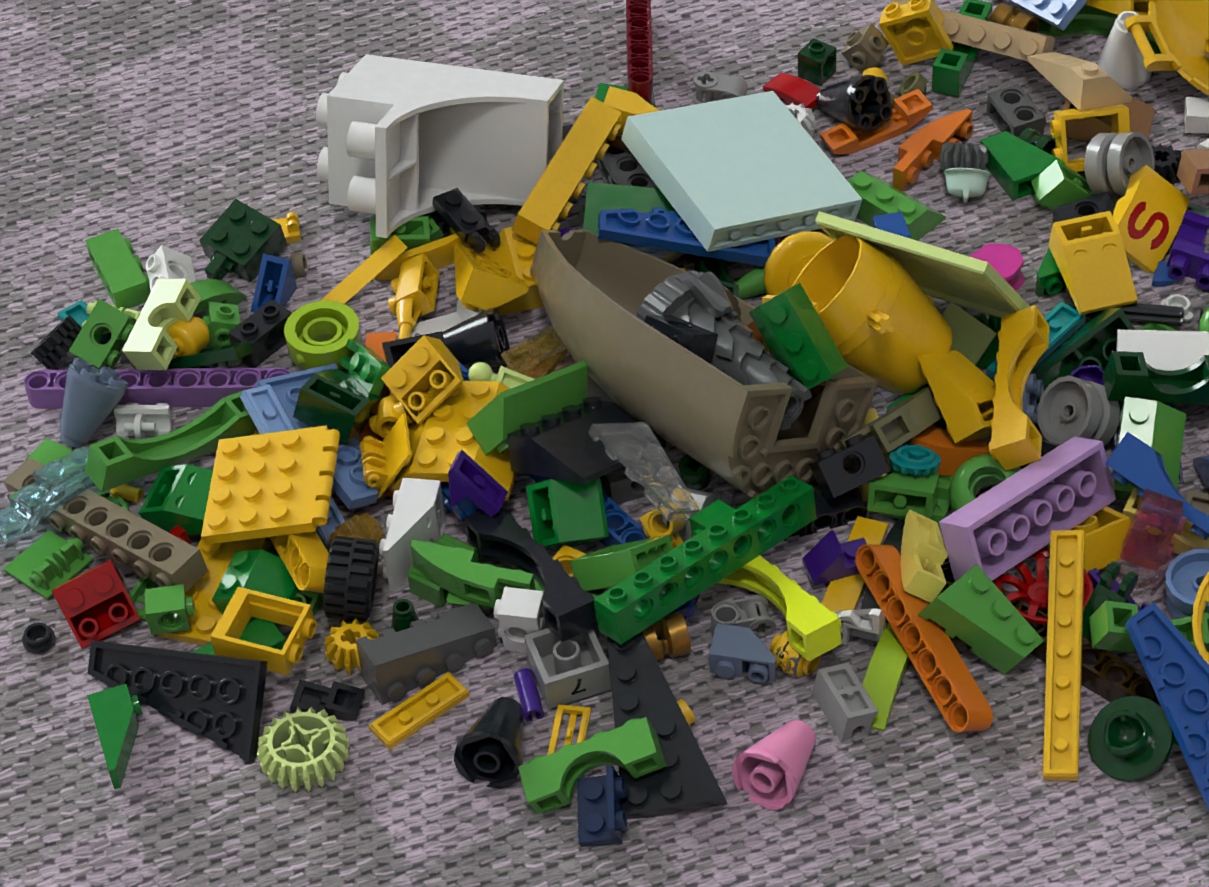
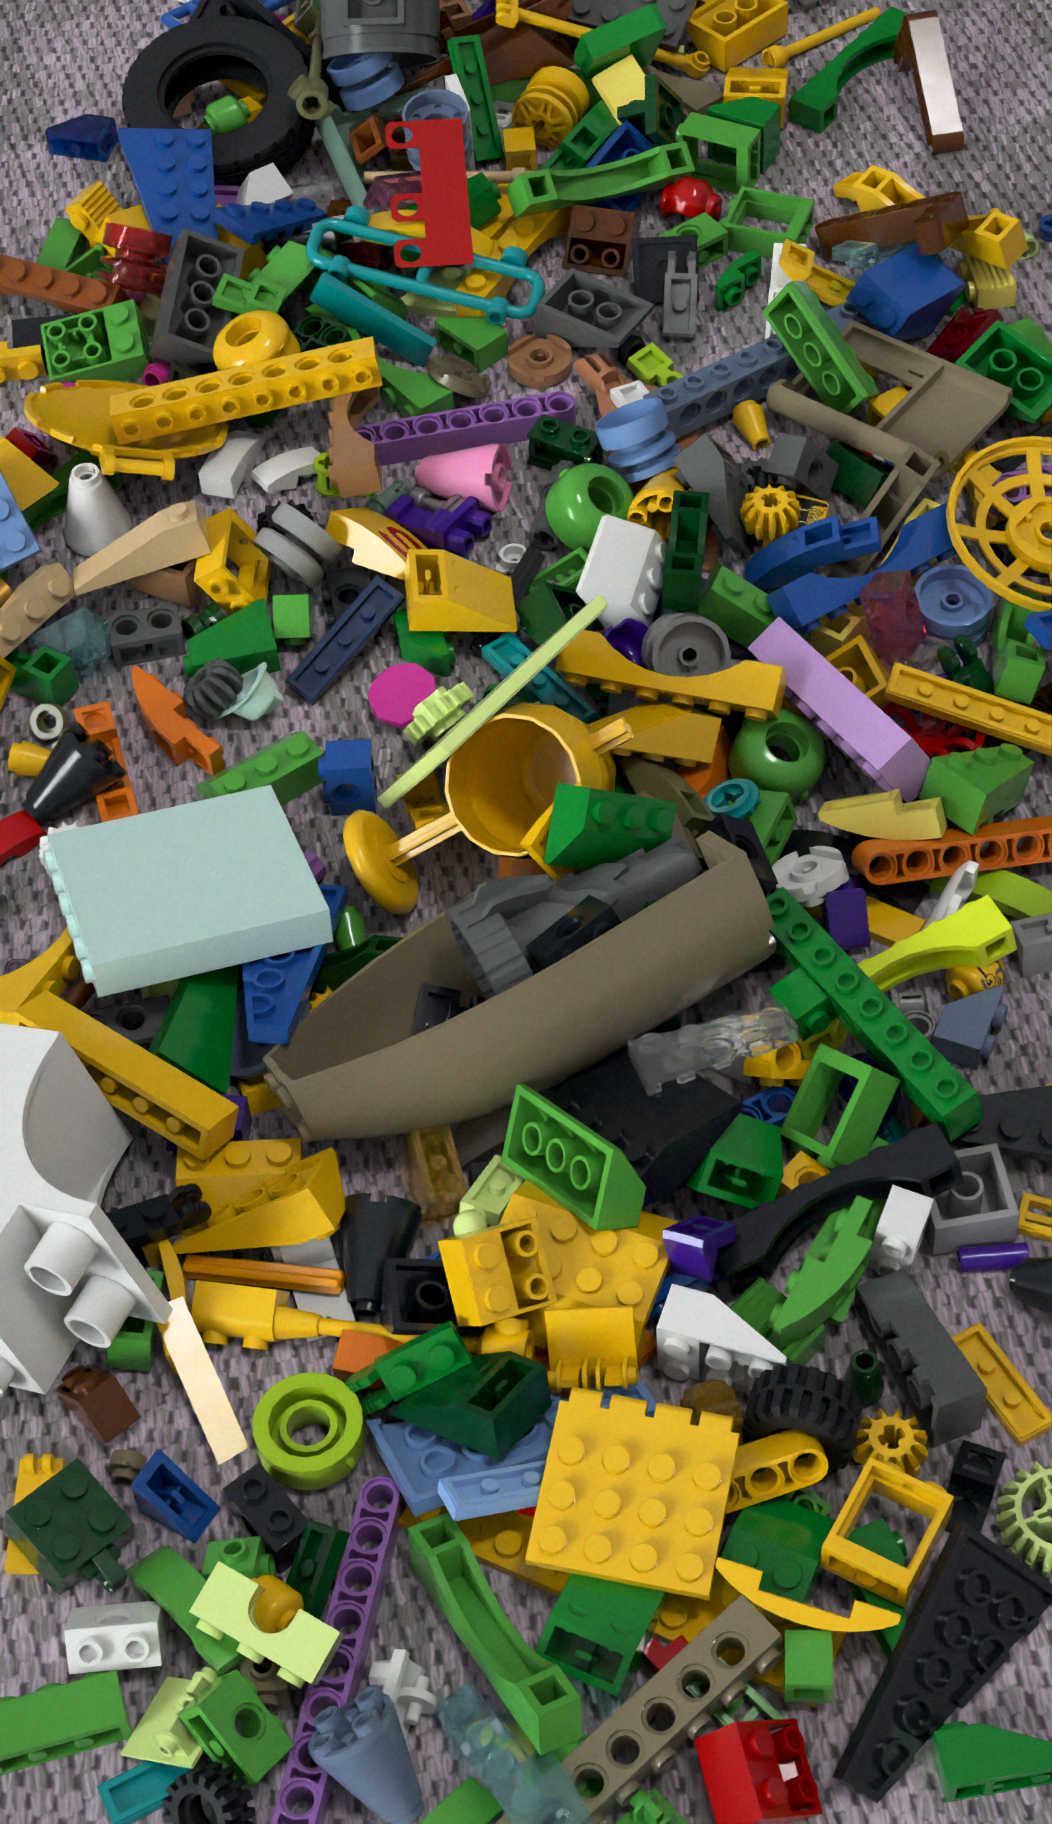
camera: 80 degrees left, 5 degrees up
(198, 589) = (861, 1617): none -> yellow slope
(338, 237) = (97, 1401): none -> reddish brown slope
(448, 298) = (264, 1273): none -> light orange axle
(858, 524) = (811, 875): none -> white plate
(987, 74) = (78, 635): none -> clear light blue slope
(1027, 216) = (345, 640): none -> dark blue tile

